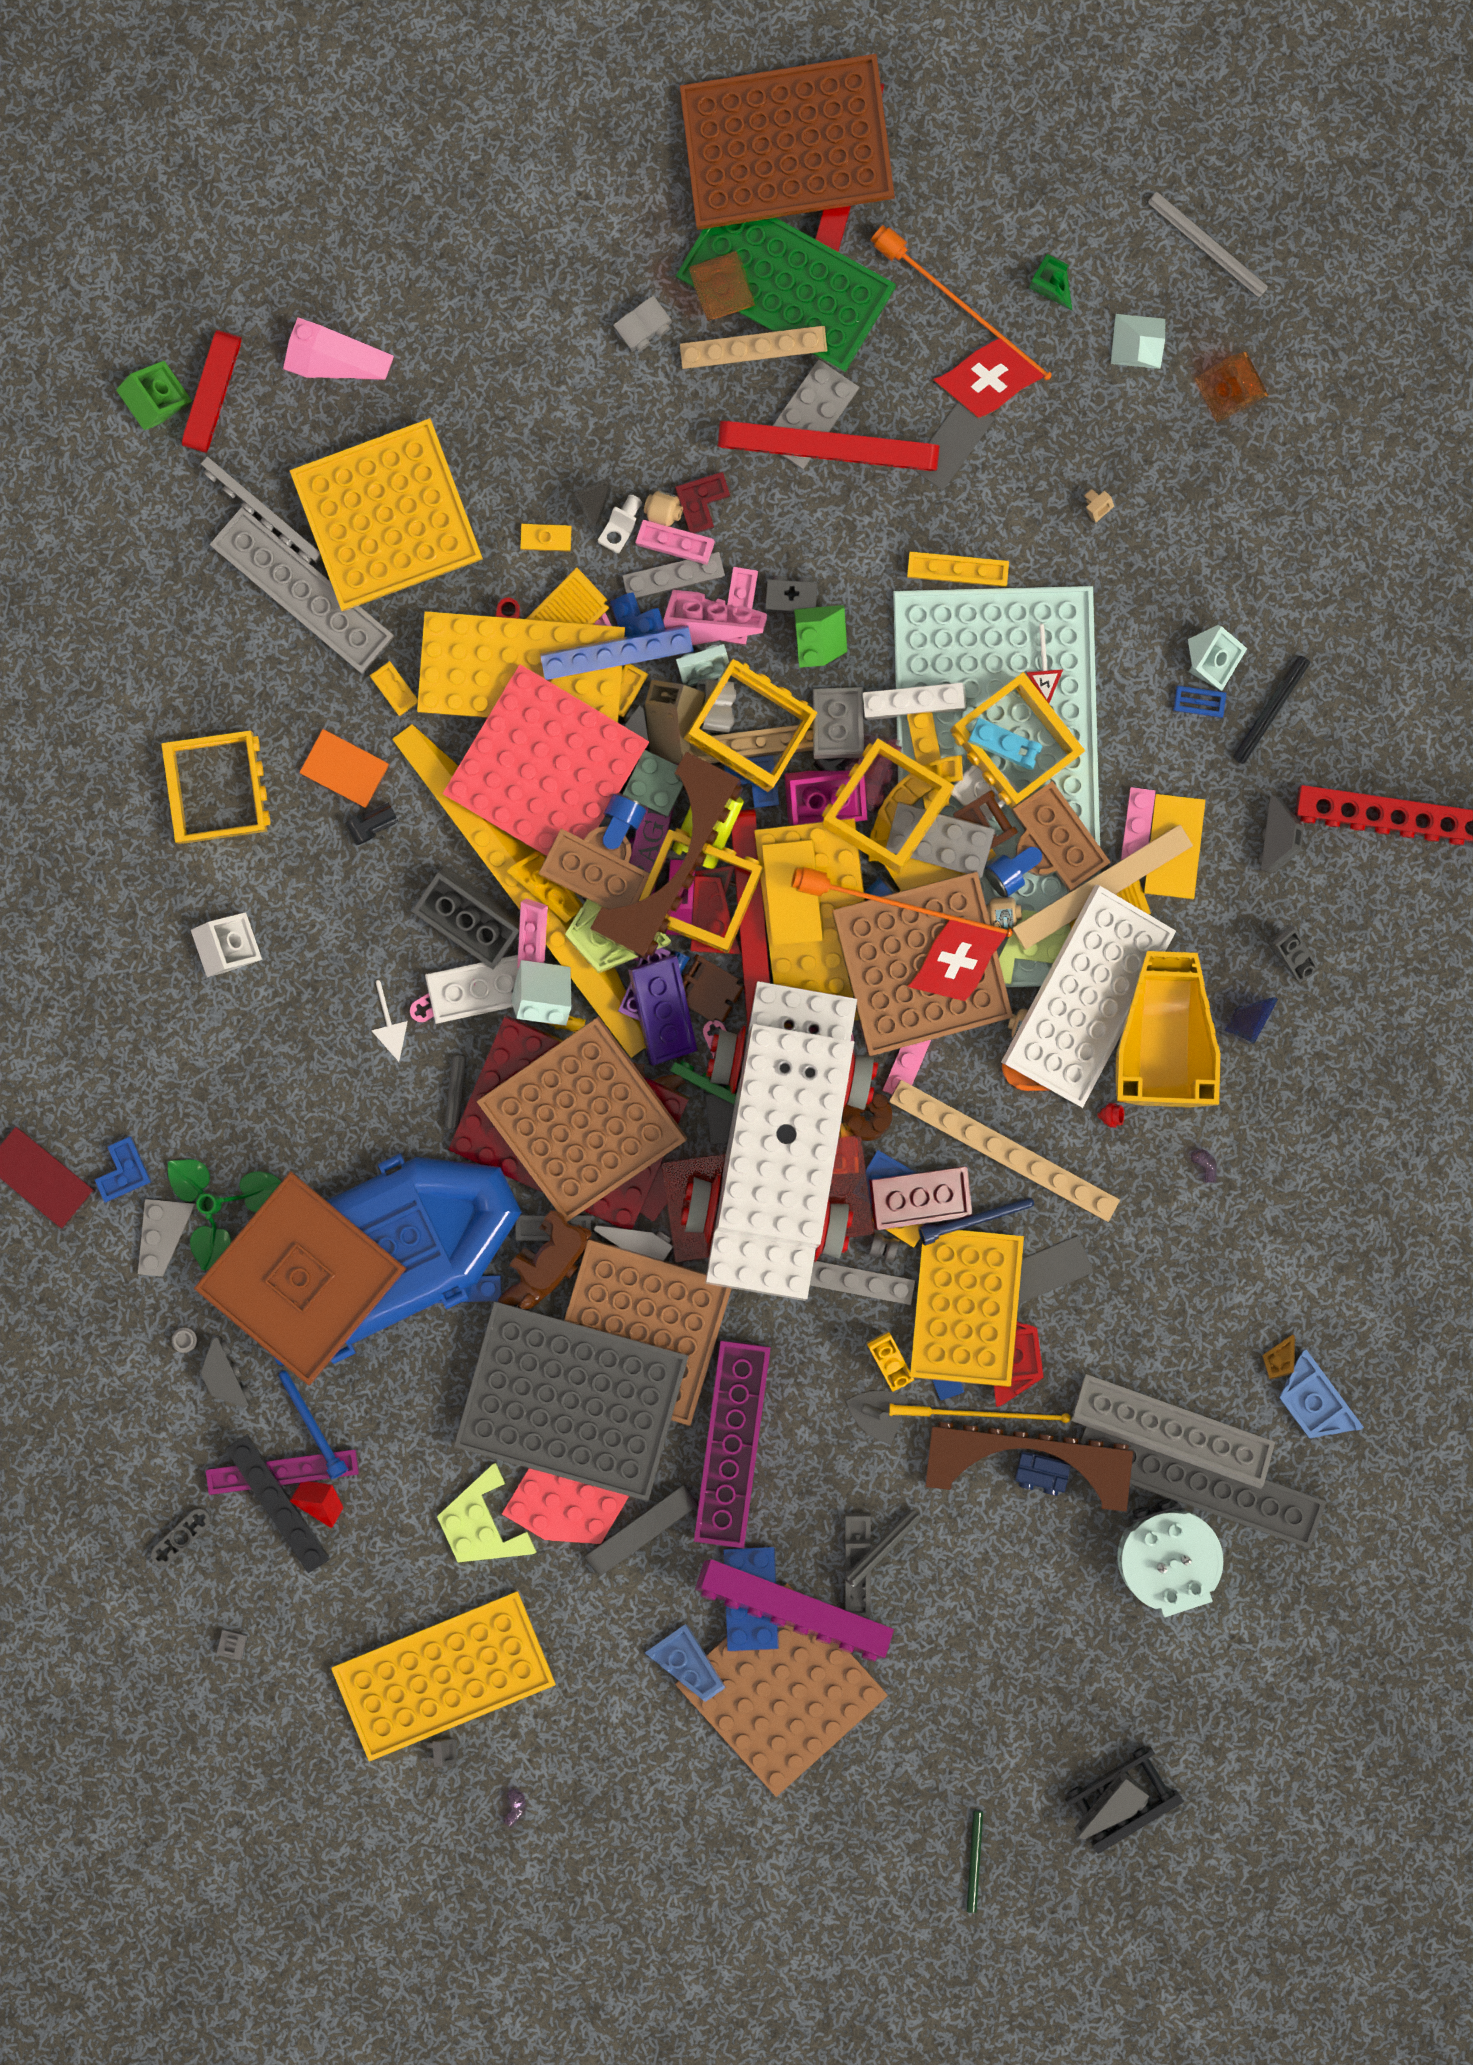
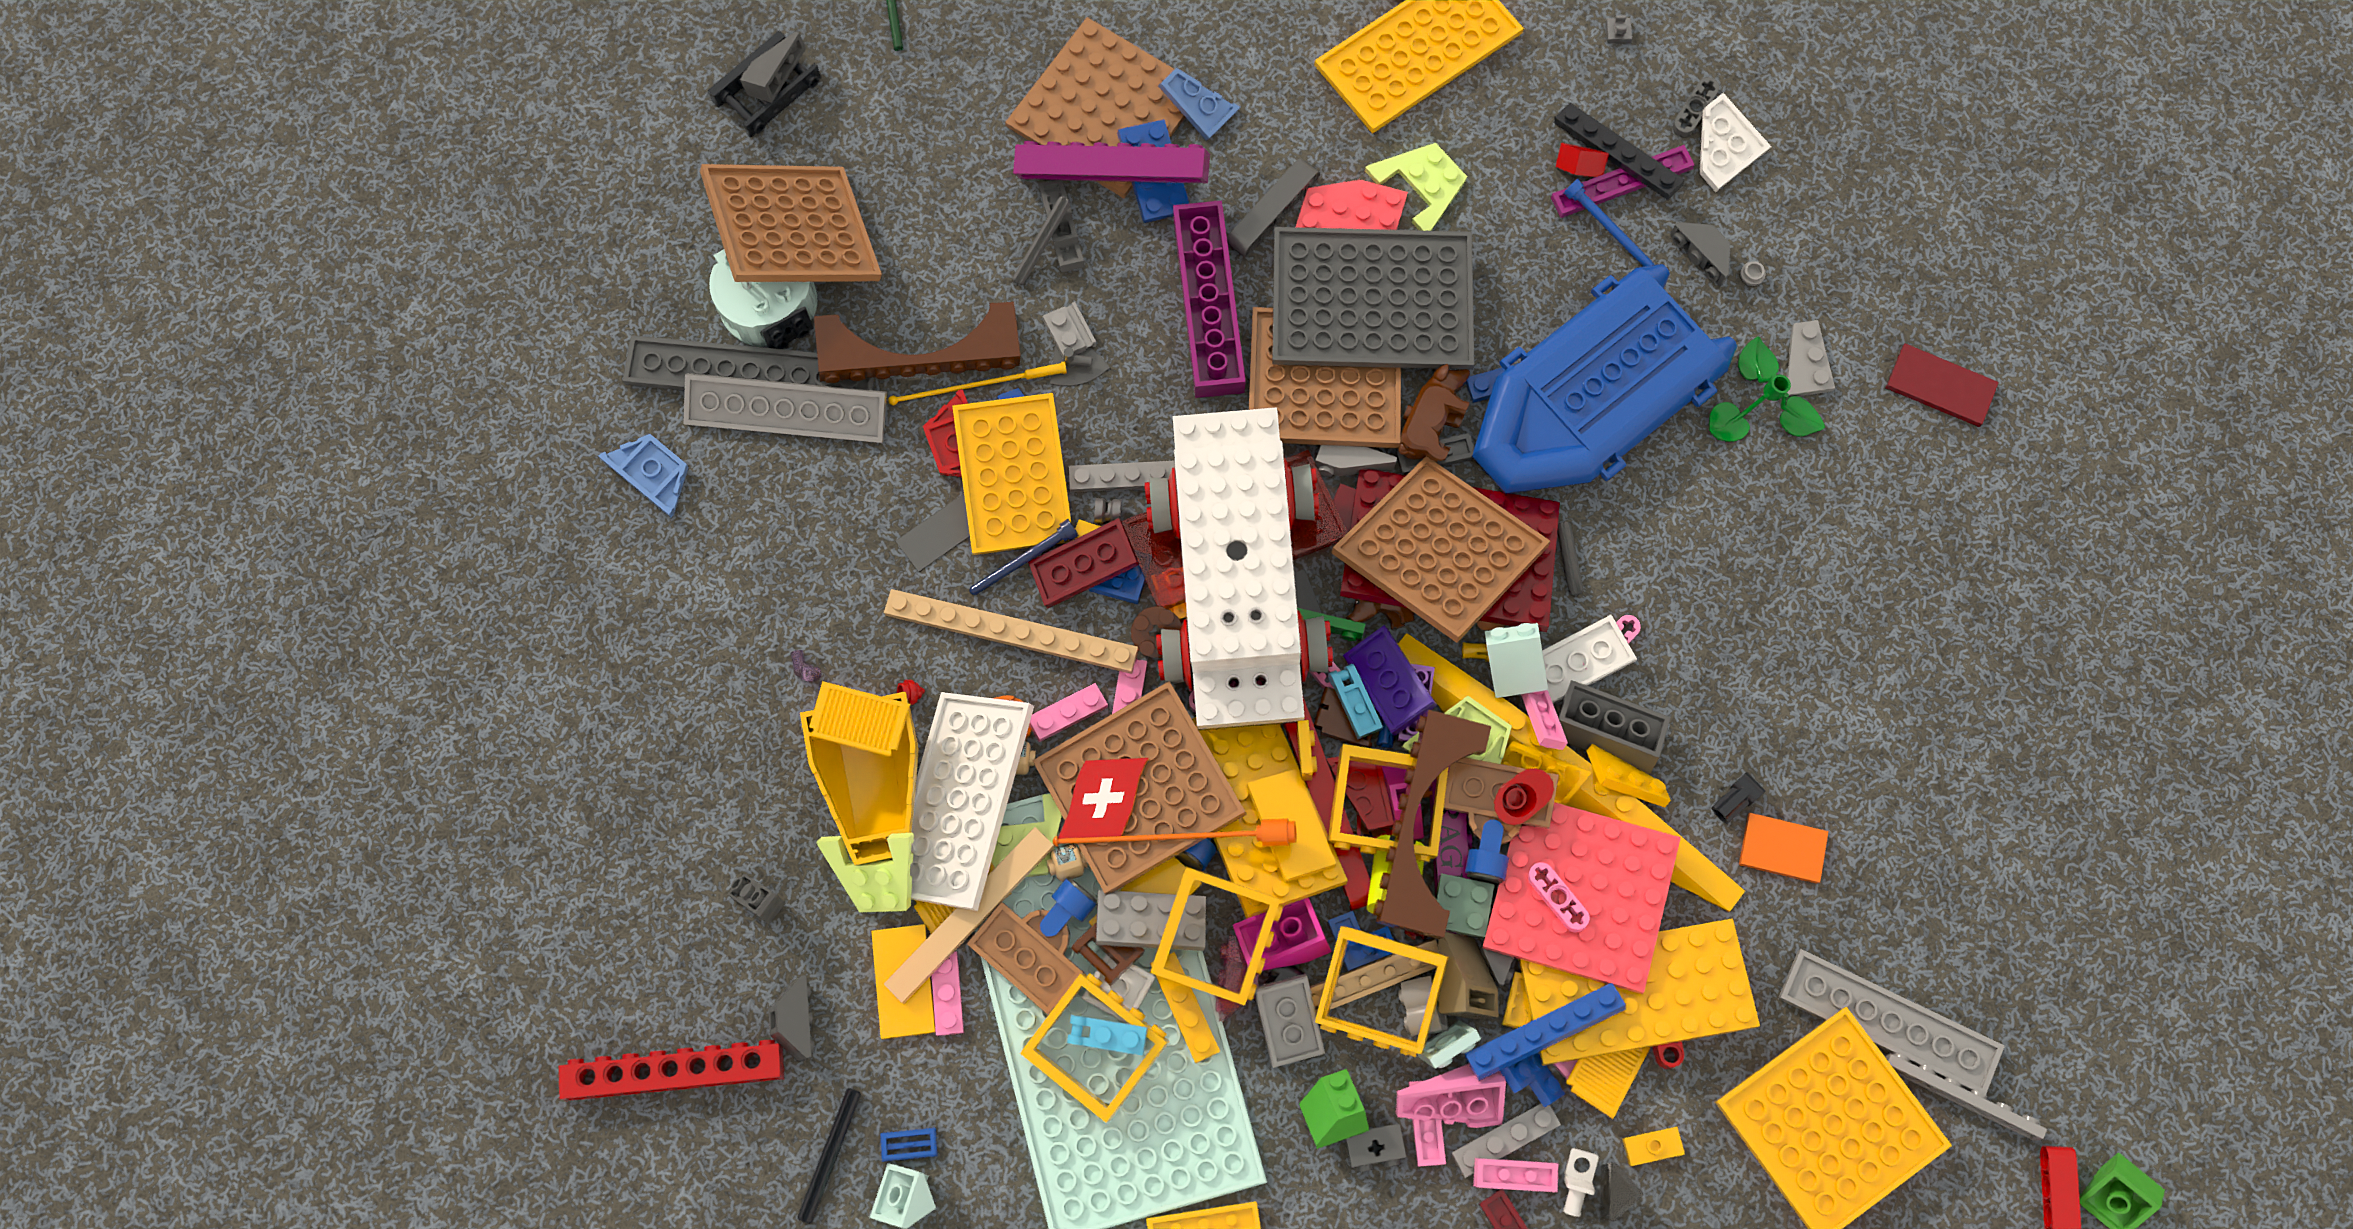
camera: 165 degrees right, 15 degrees down
(129, 1174) = (1859, 410): blue plate -> none
(164, 1485) = (1727, 143): none -> white plate
(174, 790) = (1944, 776): yellow window -> none
(226, 944) = (1841, 642): white slope -> none
(300, 1278) = (1668, 338): dark orange tile -> none
(392, 1035) = (1649, 598): white piece -> none
(394, 688) = (1761, 942): yellow plate -> none
(471, 863) = (1626, 778): none -> yellow wing
(557, 750) = (1551, 876): none -> bright pink beam
(580, 857) = (1523, 796): none -> red piece
(663, 508) = (1539, 1209): tan head -> none
(700, 997) = (1355, 702): none -> medium azure plate
(761, 948) = (1305, 741): none -> yellow plate
(876, 1448) = (1069, 329): none -> light grey plate
(890, 1361) = (1078, 409): yellow slope -> none
(909, 791) = (1196, 963): yellow tile -> none
(914, 700) = (1213, 1063): white arch -> none
(968, 1058) = (1067, 712): none -> bright pink plate
(1042, 1472) = (905, 340): dark blue brick -> none
(1045, 680) = (1079, 1124): piece -> none
(1130, 1616) = (789, 223): none -> medium nougat plate
(1166, 1084) = (858, 719): none -> yellow window
(1181, 933) = (878, 884): none -> yellowish green wing
(1250, 1020) = (784, 818): clear blue slope -> none
(1281, 1358) = (692, 501): pearl gold piece -> none

